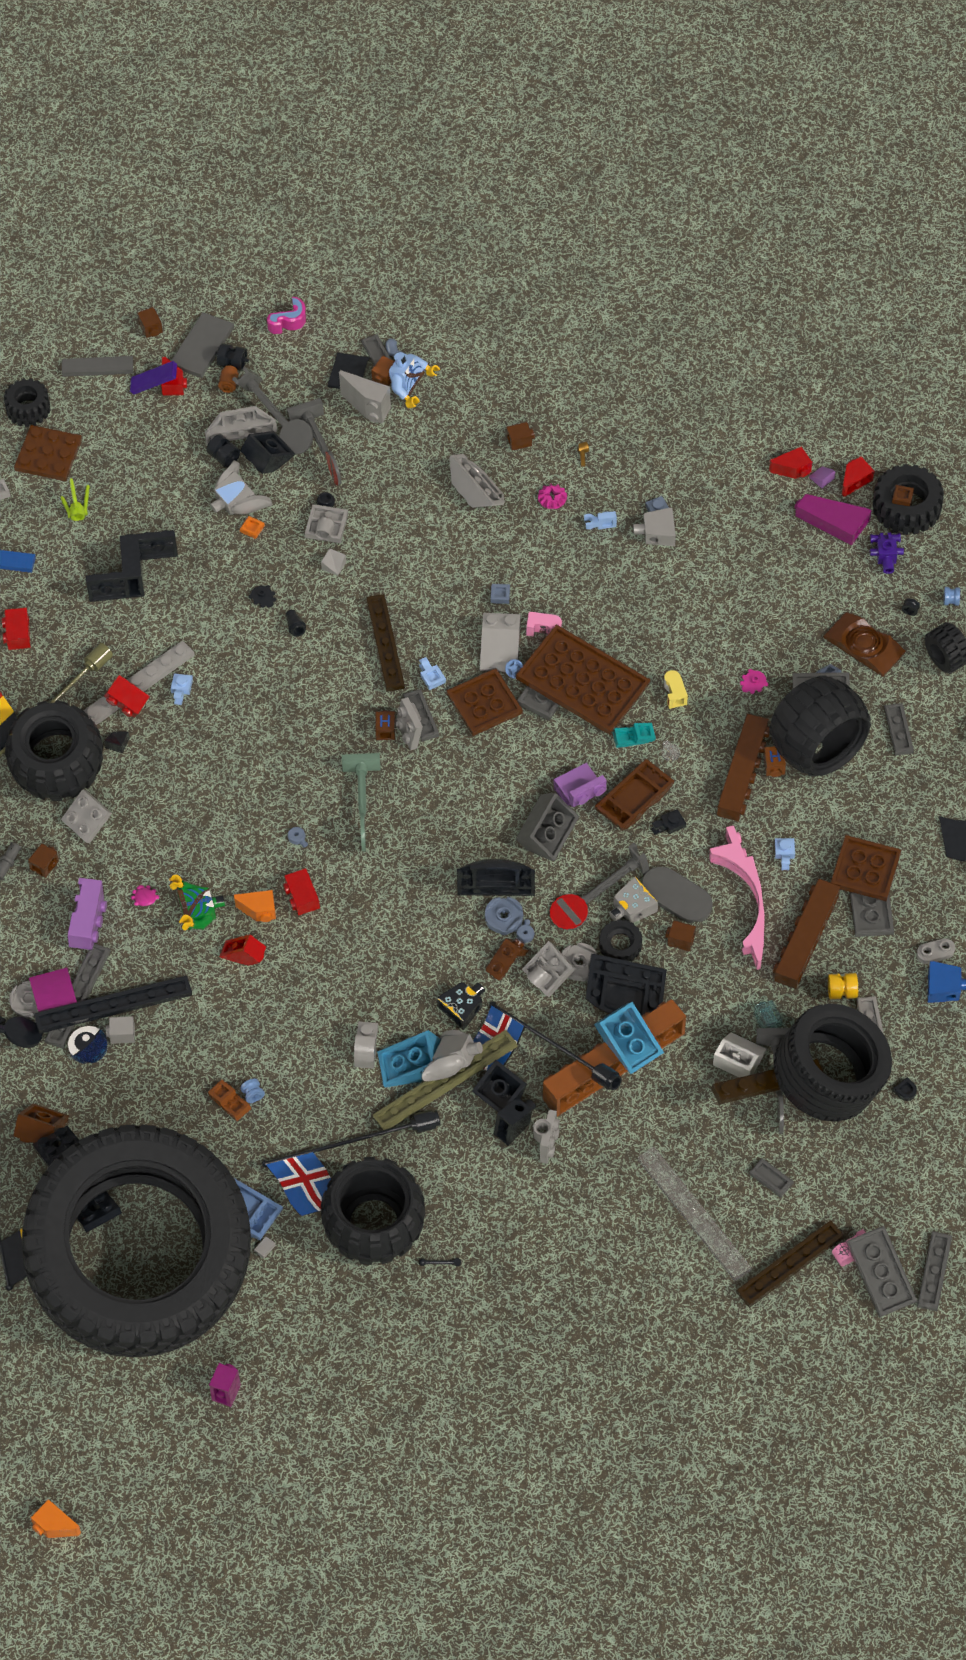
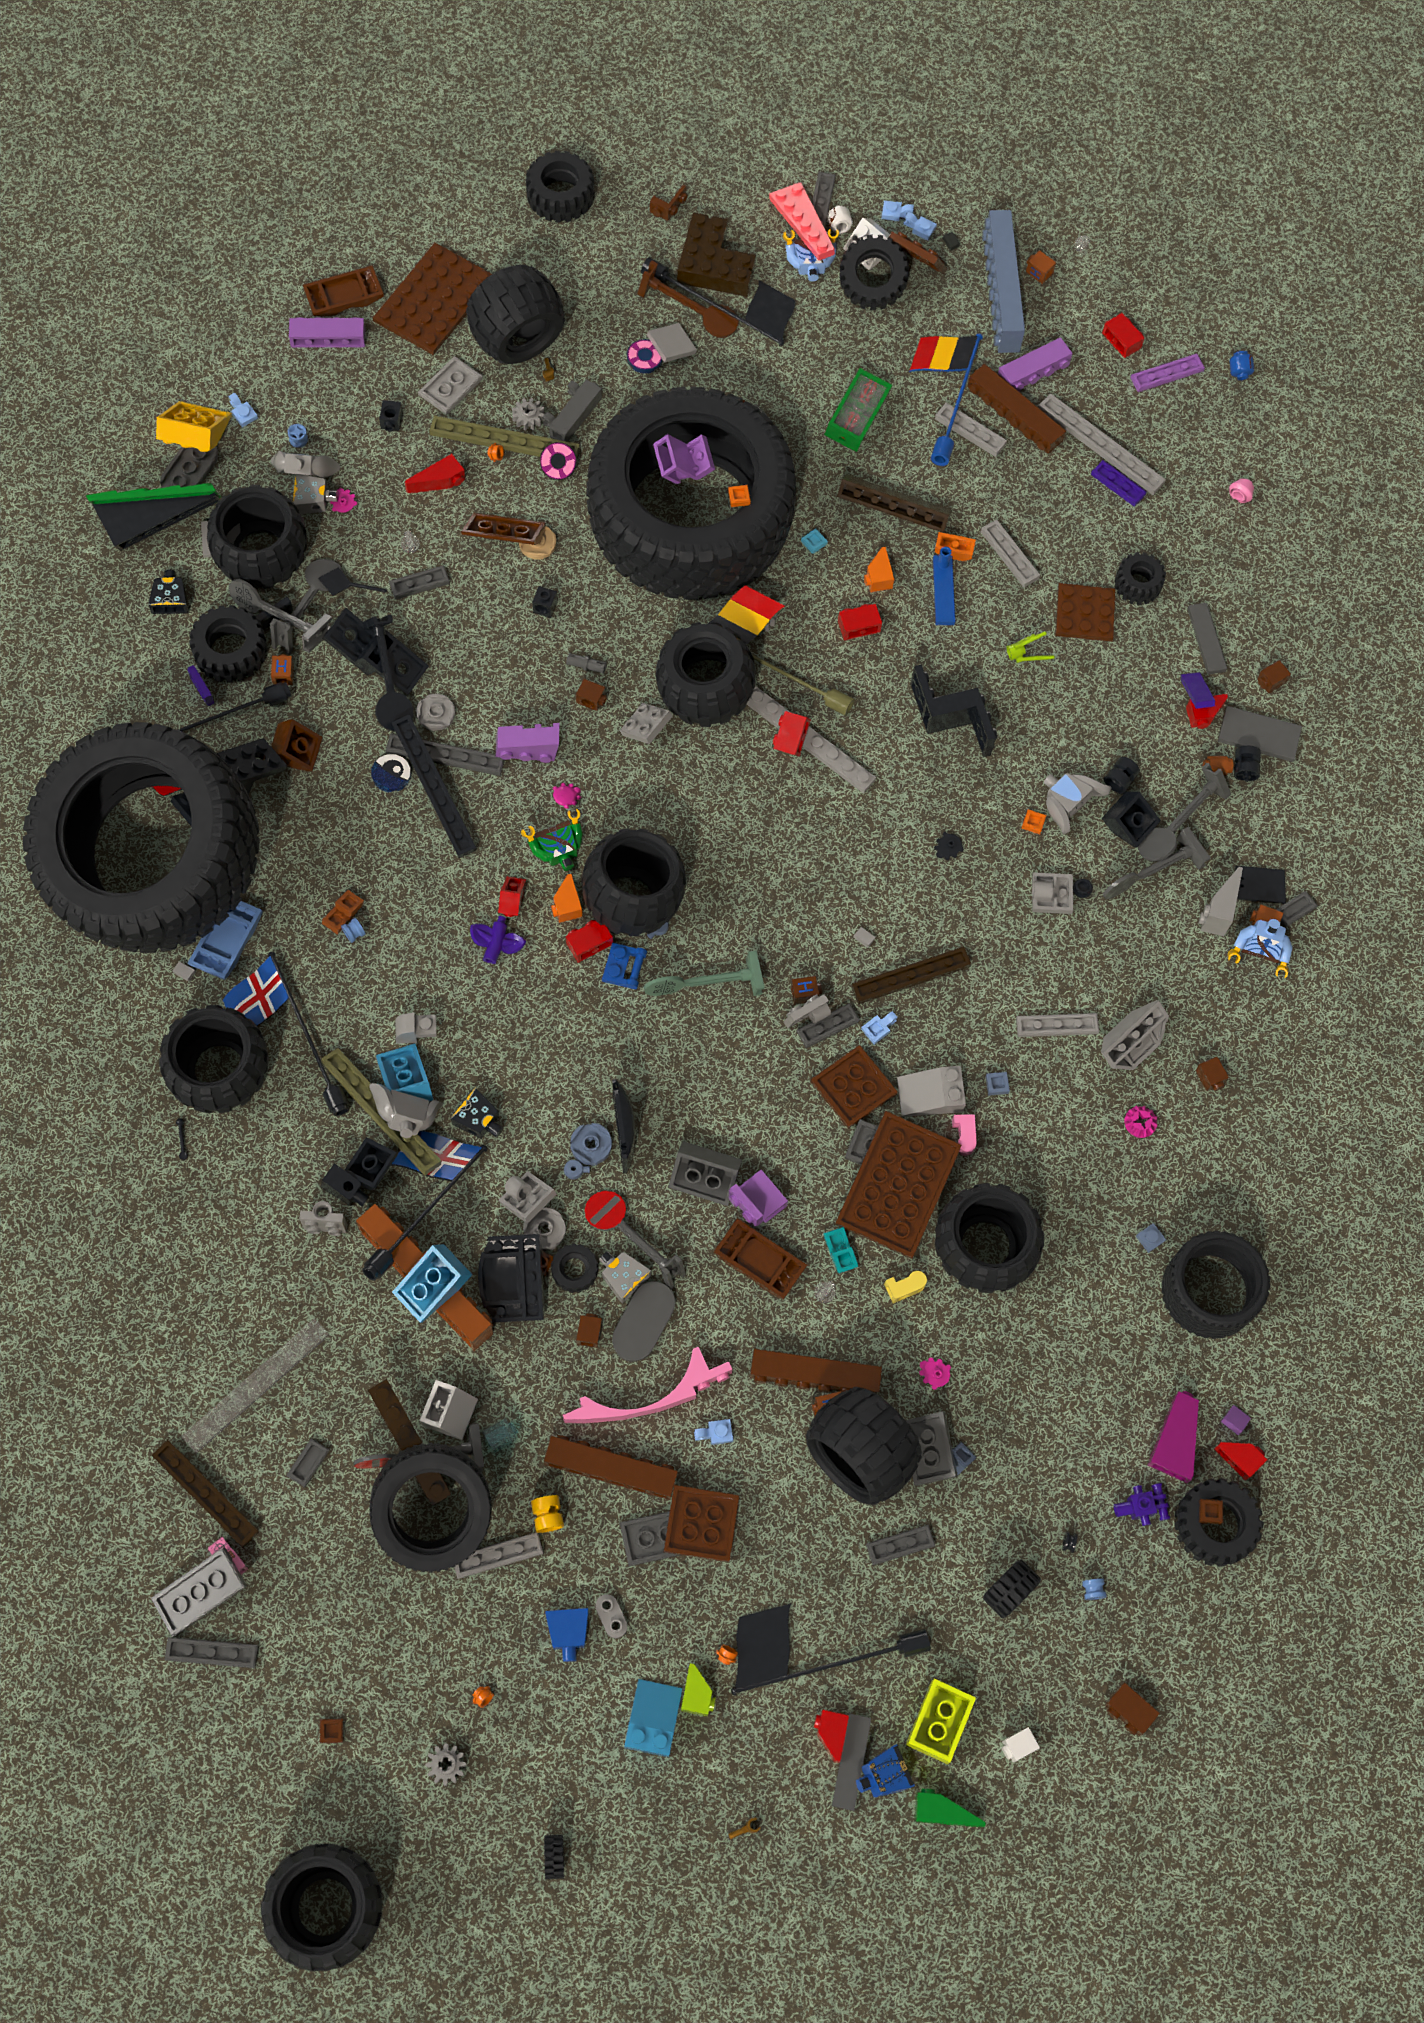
camera: 75 degrees right, 10 degrees up
(52, 990) = (441, 728): magenta slope -> none
(117, 741) = (743, 738): black slope -> none
(121, 1030) = (407, 799): light grey brick -> none
(181, 685) = (821, 786): light blue plate -> none
(225, 1384) = (23, 955): magenta brick -> none
(240, 423) = (1158, 784): light grey wedge -> none
(255, 813) = (636, 856): none -> black tyre
(286, 969) = (496, 939): none -> dark purple plant
(288, 320) = (1313, 815): dark pink animal -> none
(295, 624) = (917, 882): black cone -> none
(331, 874) = (617, 965): none -> blue plate
(333, 562) = (1004, 907): light grey slope -> none
(340, 674) = (864, 937): none -> light grey piece
(391, 347) = (1303, 923): sand blue arm -> none
(452, 542) = (1057, 1025): none -> light grey tile
(505, 957) = (541, 1153): reddish brown bracket -> none
(512, 667) = (897, 1106): medium blue wheel -> none
(582, 449) = (1213, 1145): pearl gold hand -> none
(602, 521) = (1117, 1181): light blue plate -> none
(647, 589) = (999, 1207): none -> black tyre
(657, 527) = (1120, 1240): light grey torso -> none
(670, 821) = (734, 1303): black plate -> none
(707, 489) = (1239, 1254): none -> black tyre
(792, 464) = (1242, 1382): red slope -> none
(865, 643) = (1010, 1494): reddish brown slope -> none
(906, 1090) = (430, 1599): black tile -> none

